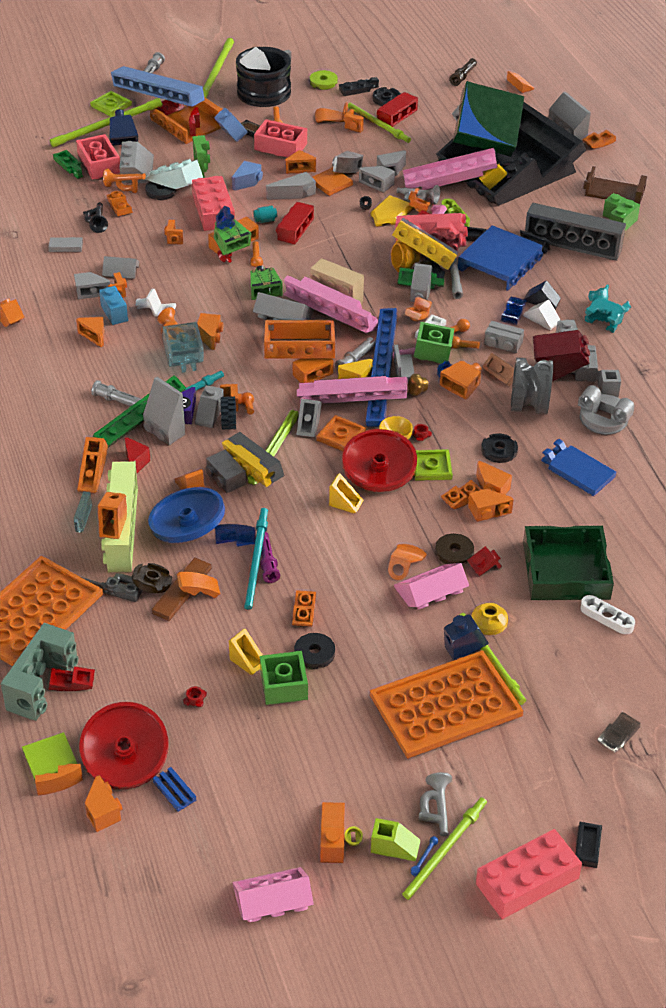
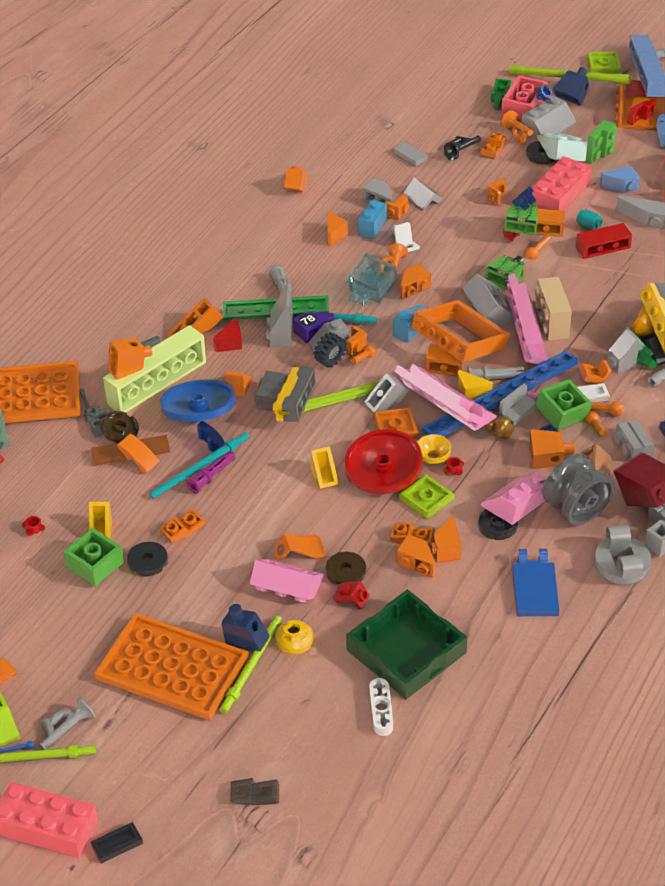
camera: 50 degrees right, 0 degrees up
(118, 142) = (544, 92): none -> clear blue tile
(249, 358) = (403, 321): none -> dark azure slope
(492, 419) = (517, 498): none -> bright pink slope

